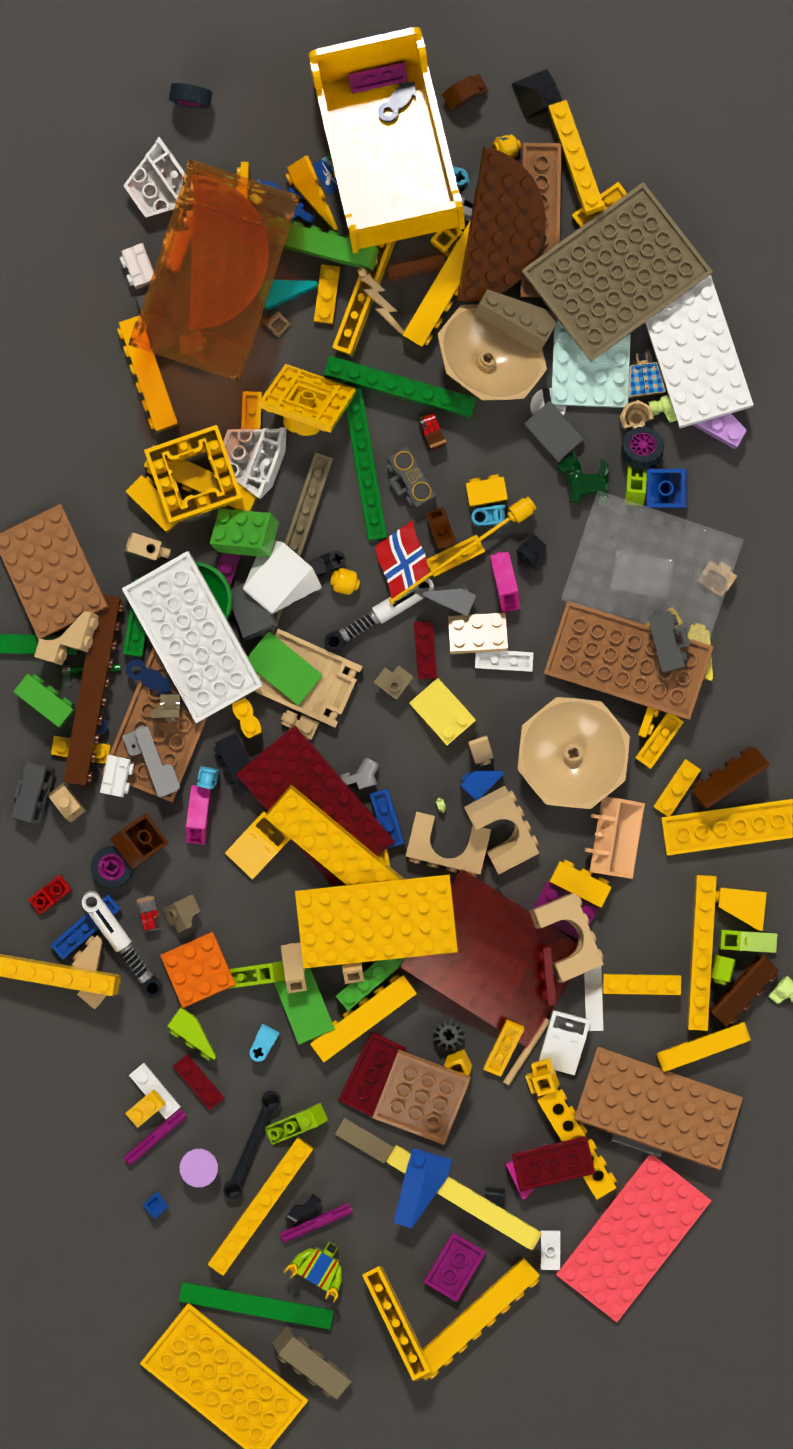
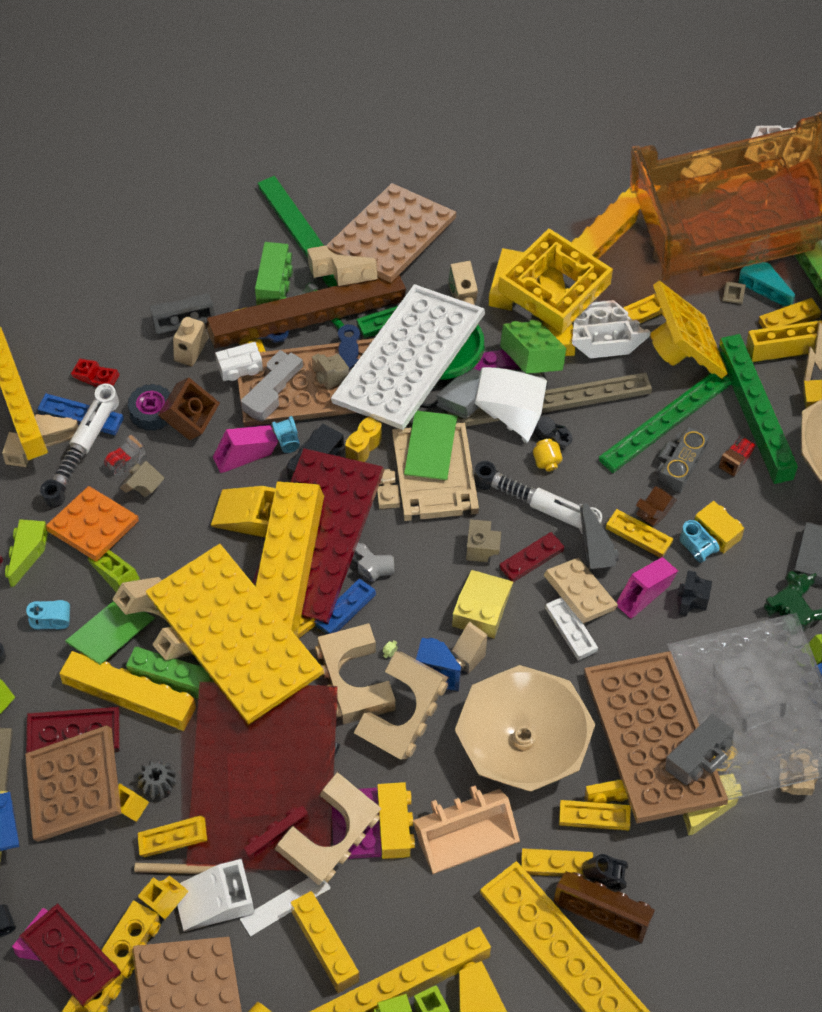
camera: 60 degrees right, 30 degrees down
(406, 562) = (609, 490): flag -> none
(707, 758) = (606, 871): none -> black piece

